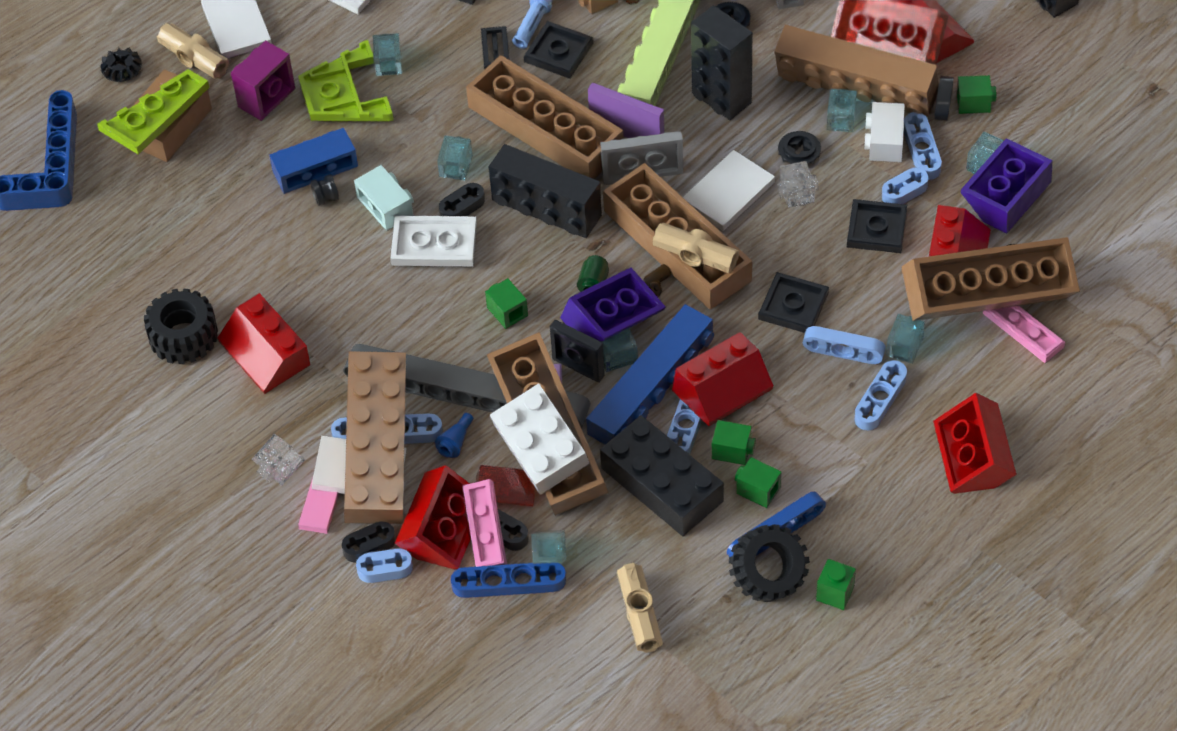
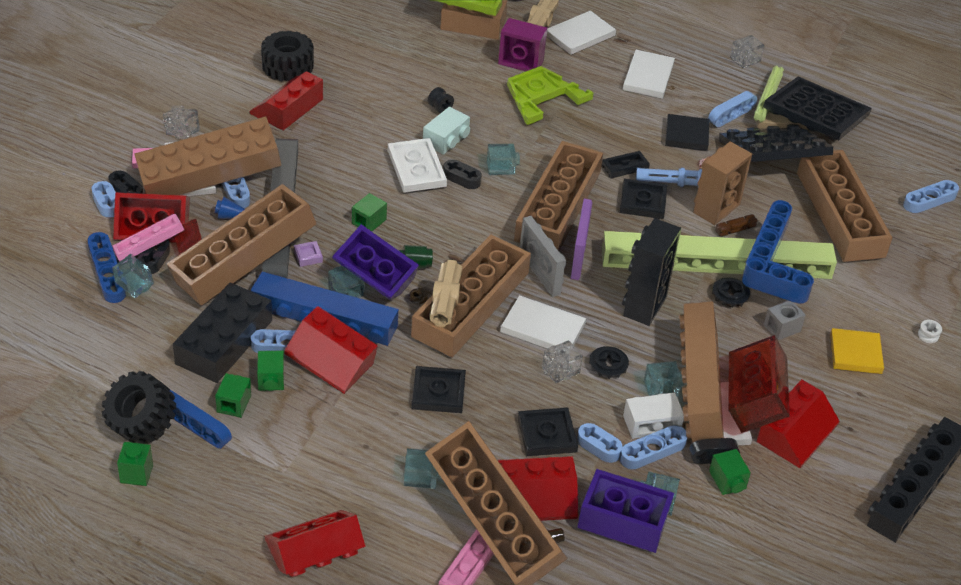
camera: 65 degrees right, 10 degrees down
(313, 160) = (467, 89): blue brick -> none
(387, 54) = (585, 106): clear light blue brick -> none
(539, 439) = (210, 229): white brick -> none
(545, 191) = (481, 205): black brick -> none
(577, 351) = (323, 255): black tile -> none
(642, 621) = (88, 343): tan piece -> none
(828, 342) = (399, 427): light blue beam -> none
(880, 383) = (339, 454): light blue beam -> none

